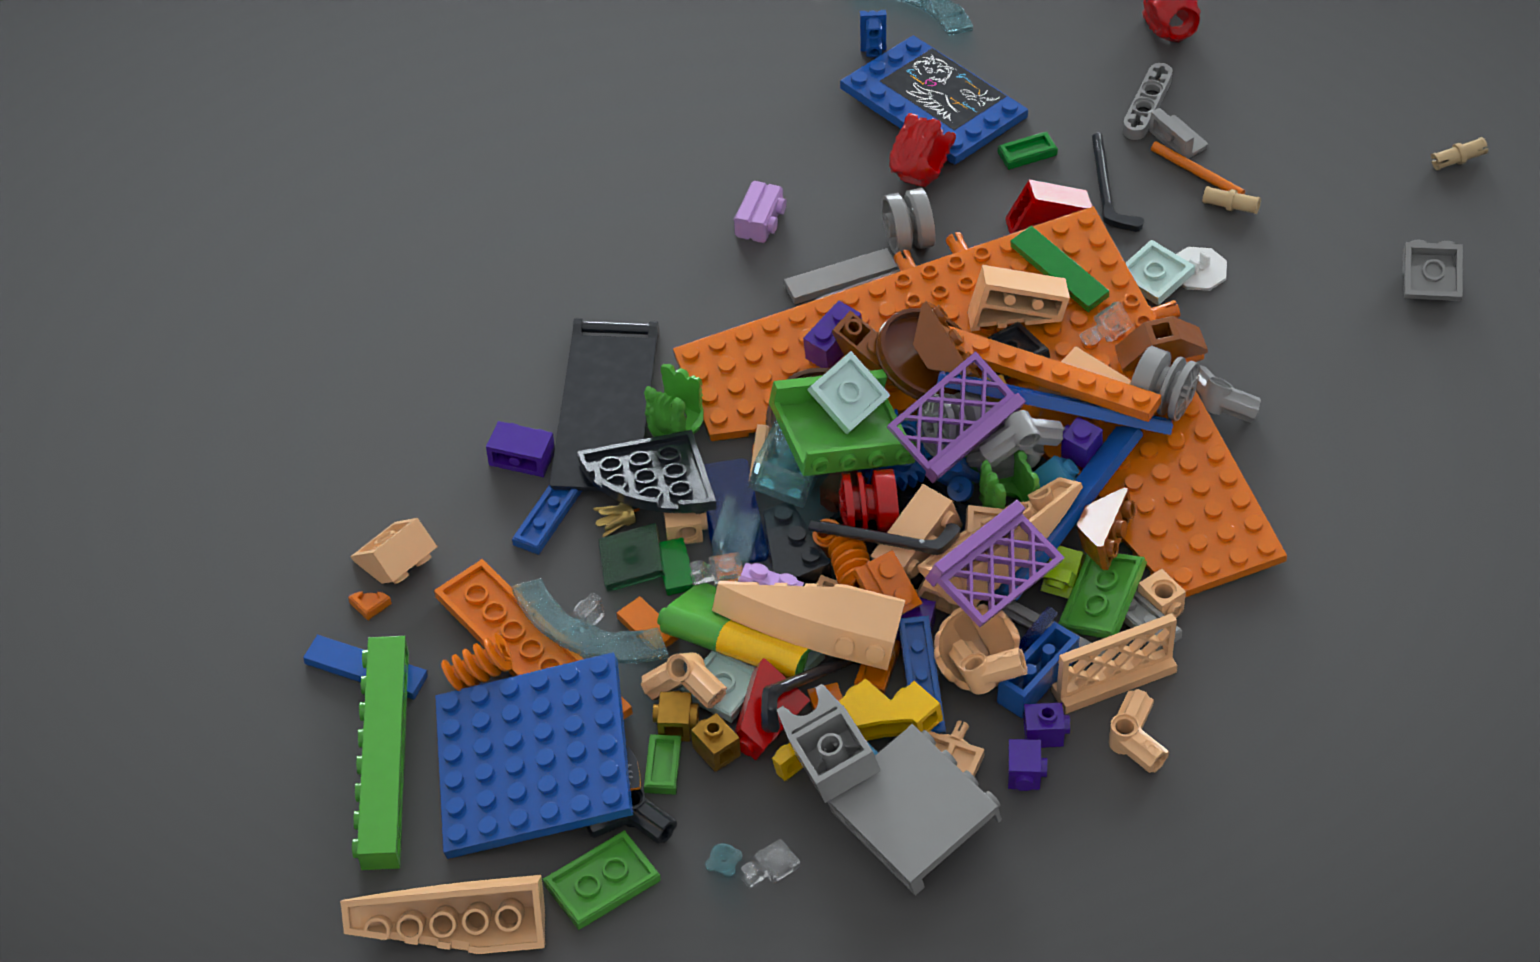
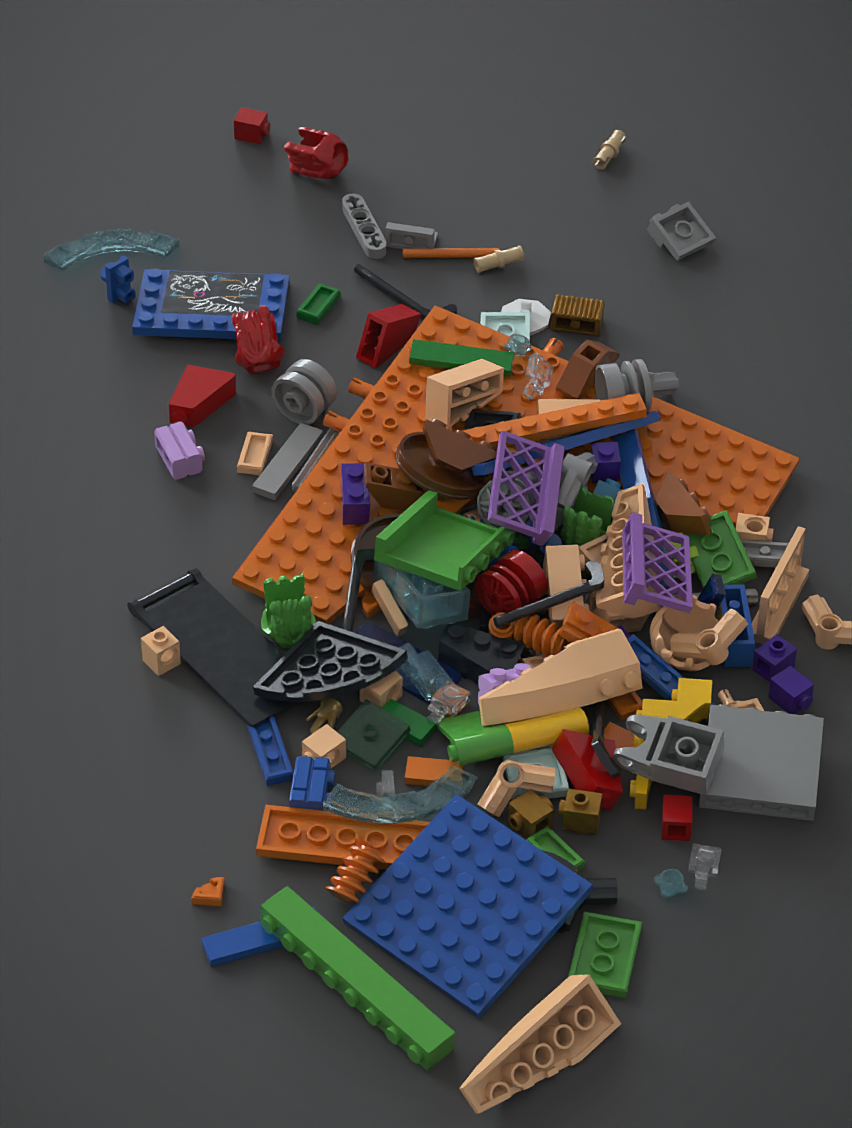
camera: 45 degrees left, 5 degrees down
(396, 551) = (190, 842): light nougat slope -> none
(520, 448) = (199, 714): dark purple brick -> none
(536, 561) = (311, 783): none -> blue brick
(550, 374) = (160, 650): none -> light nougat brick
(578, 544) = (325, 744): none -> light nougat brick
(736, 430) = (358, 559): none -> black piece
(791, 805) = (676, 818): none -> red brick
(823, 252) = (254, 453): none -> light nougat tile
(829, 173) = (200, 394): none -> red slope
(848, 392) = (431, 515): light aqua plate -> none
(1120, 286) = (518, 344): none -> clear light blue plate
(1241, 294) = (577, 315): none -> pearl gold brick

